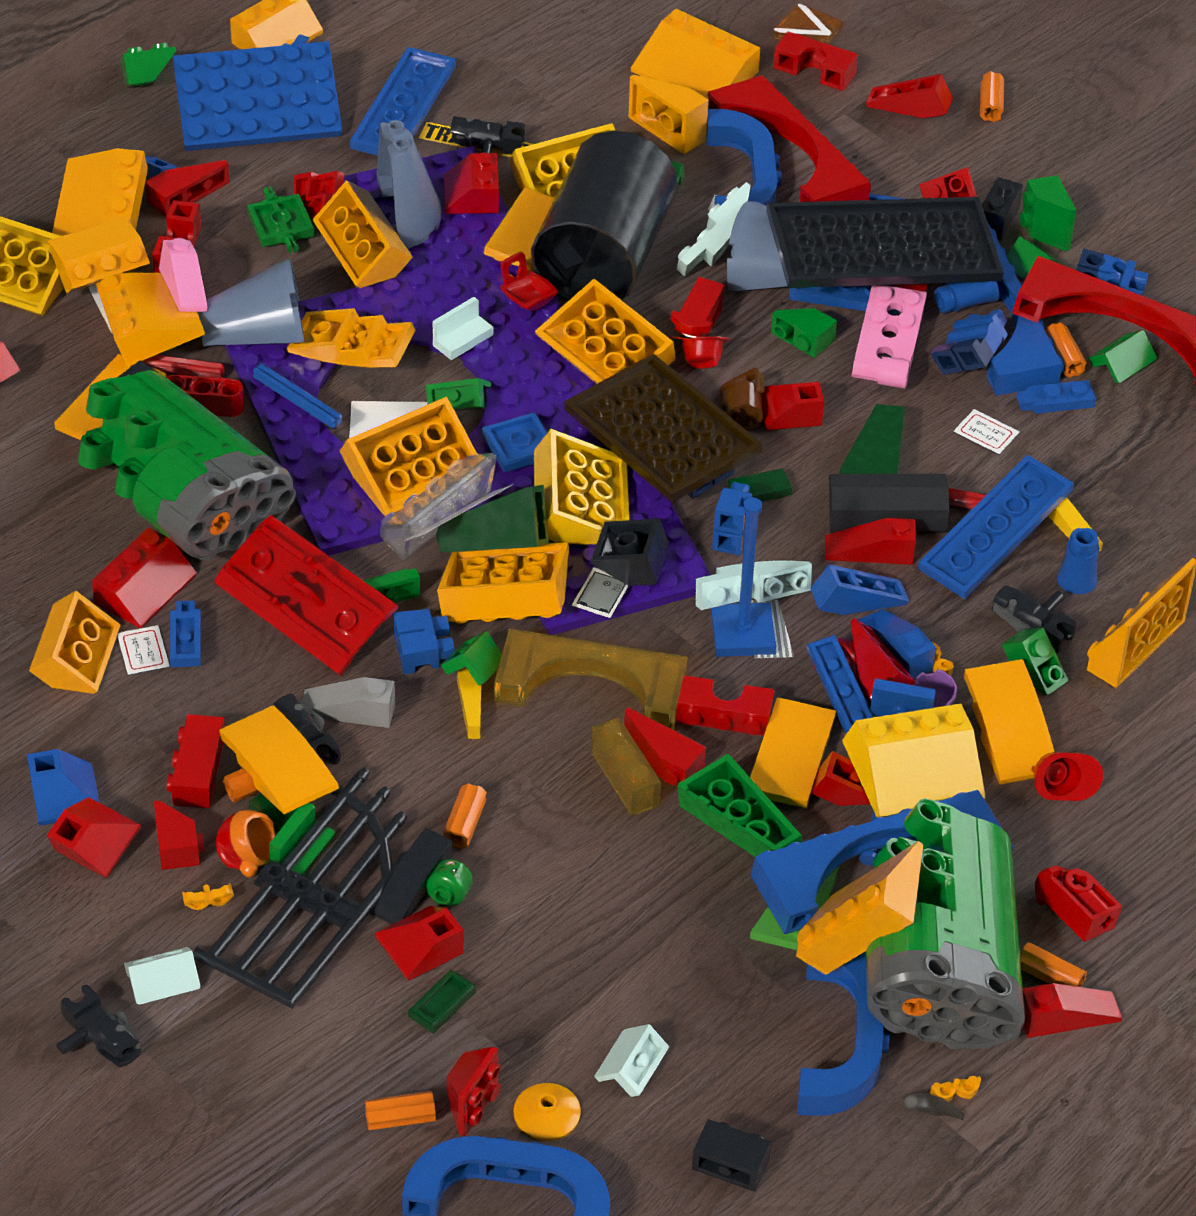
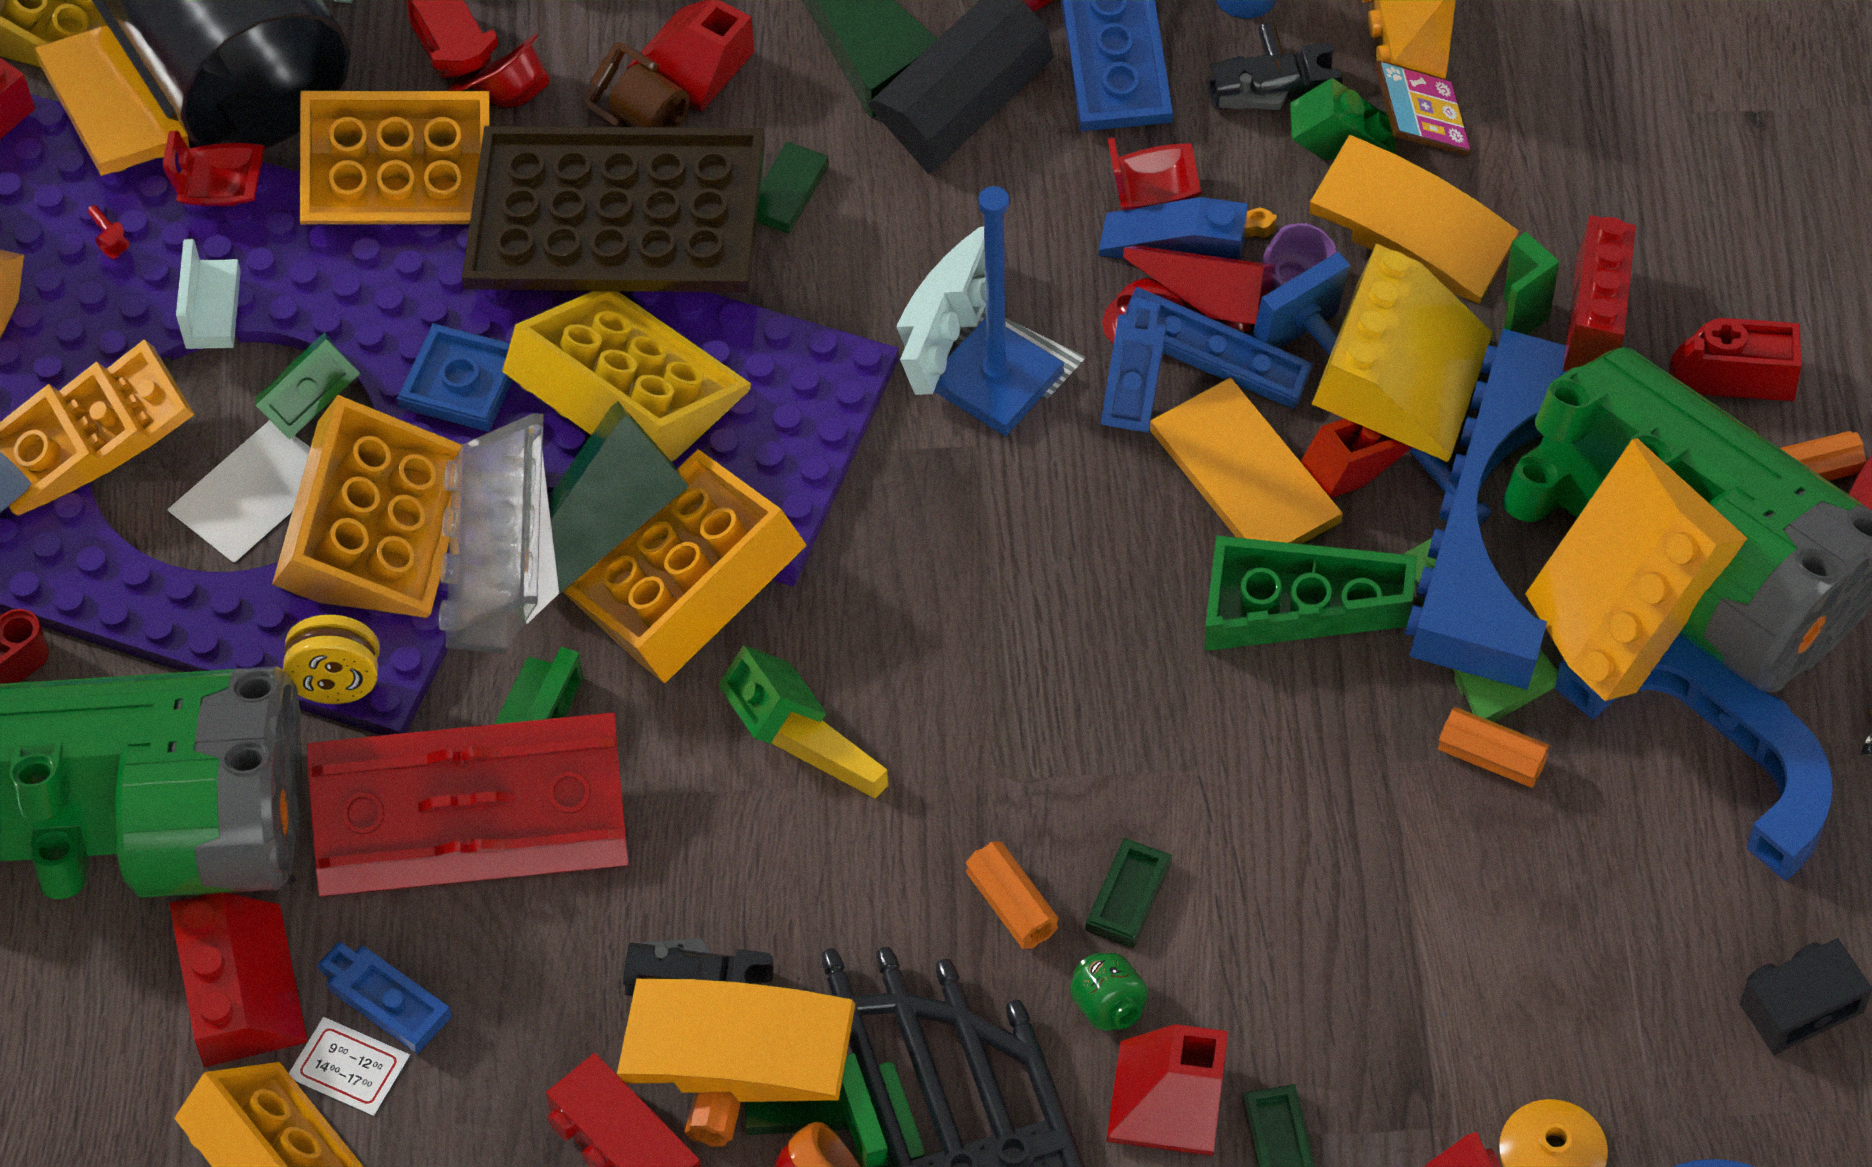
camera: 45 degrees left, 10 degrees up
(297, 396) = (113, 561): blue axle -> none
(319, 493) = (332, 659): none -> yellow head
(354, 701) = (699, 882): light grey slope -> none
(408, 882) = (1062, 1025): black slope -> none
(416, 639) = (672, 735): blue hips -> none
(458, 282) = (112, 238): none -> red hand
(514, 860) = (1128, 893): none -> dark green tile
(537, 658) = (987, 526): clear yellow arch -> none
(600, 593) = (800, 476): light grey sticker -> none
(625, 766) = (1105, 660): clear yellow brick -> none
(632, 550) = (784, 392): black slope -> none
(633, 1058) = (1560, 995): light aqua panel -> none
(667, 751) = (1119, 599): red slope -> none
(730, 519) = (828, 255): blue hips -> none
(741, 945) = (1493, 747): none -> orange axle
(745, 714) = (1081, 510): red arch -> none
(796, 665) = (1135, 367): none -> blue hinge
(854, 591) = (1062, 218): blue slope -> none
(874, 542) = (1002, 141): red slope -> none
(917, 606) = (1155, 175): none -> red piece
(1011, 787) = (1529, 285): none -> green panel
(1044, 811) = (1599, 291): none -> red brick
(1067, 776) = (1552, 221): red piece -> none
(1082, 683) = (1423, 108): none -> piece

